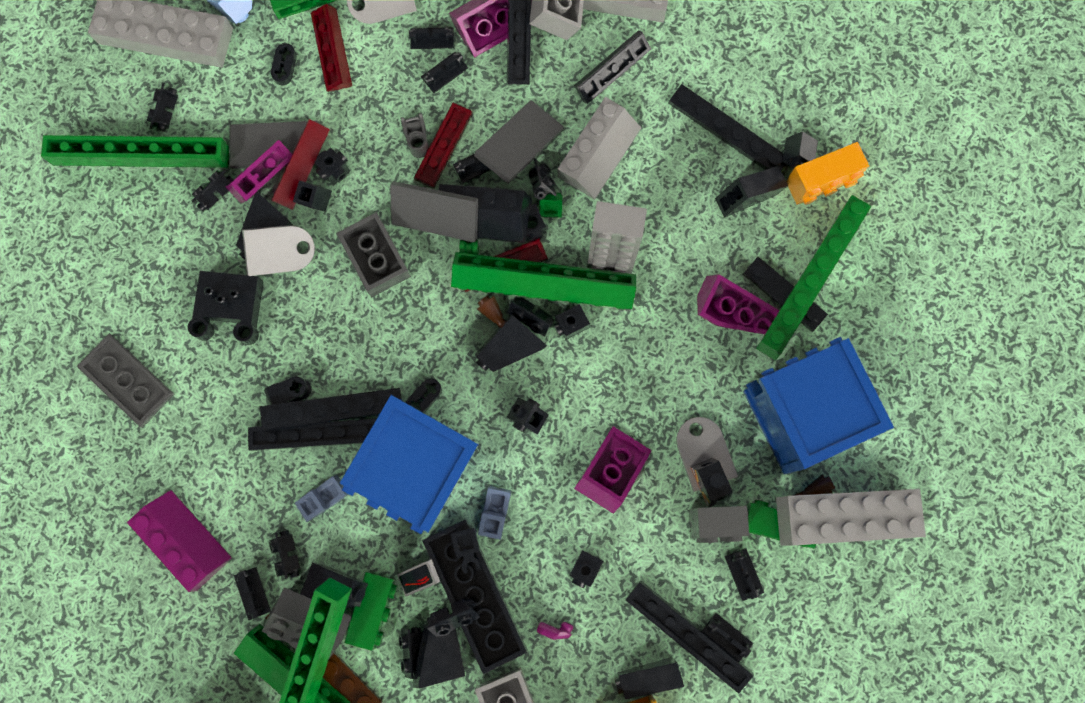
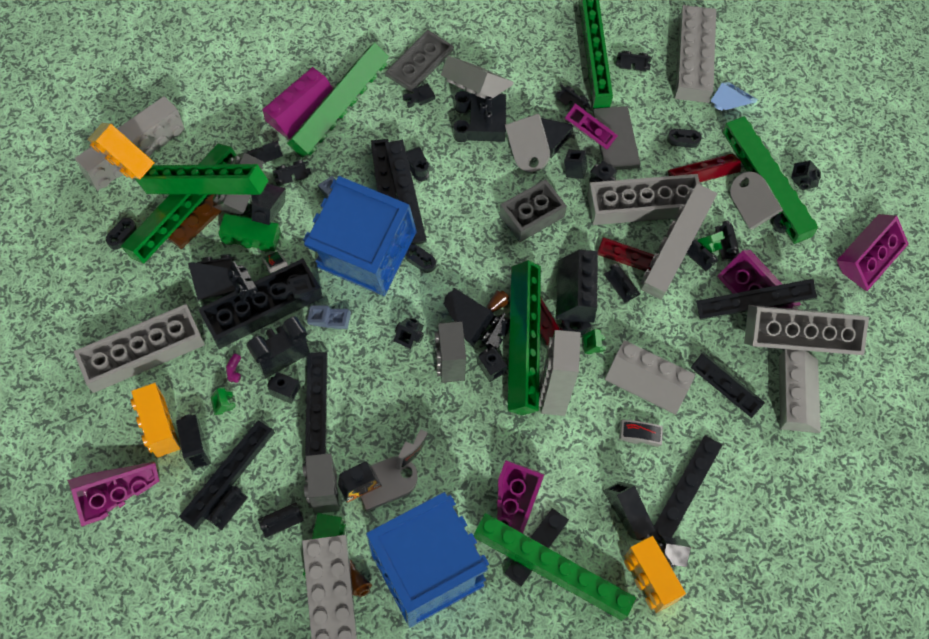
camera: 80 degrees right, 15 degrees down
(173, 306) = (474, 78): none -> light grey slope
(180, 381) = (421, 94): none -> black plate
(180, 489) = (337, 101): none -> brick
(300, 163) = (598, 153): dark red tile -> none
(370, 120) = (638, 198): none -> light grey brick
(415, 131) = (642, 234): dark grey piece -> none
(432, 54) = (712, 242): none -> green tile
(434, 211) = (573, 249): dark grey tile -> none
(439, 86) = (681, 235): none -> light grey brick
(469, 247) = (547, 283): green wheel -> none
(519, 141) = (645, 311): dark grey tile -> none
(541, 180) = (613, 331): black hinge -> none
(542, 572) = (280, 348): none -> black piece
(564, 365) = (450, 352): none -> dark grey brick
(598, 646) = (220, 401): none -> green tile
(613, 470) = (368, 404): magenta slope -> none
(614, 530) = (316, 404): none -> black plate
(663, 167) = (641, 432): none -> slope
(676, 424) = (410, 451): none -> light grey slope

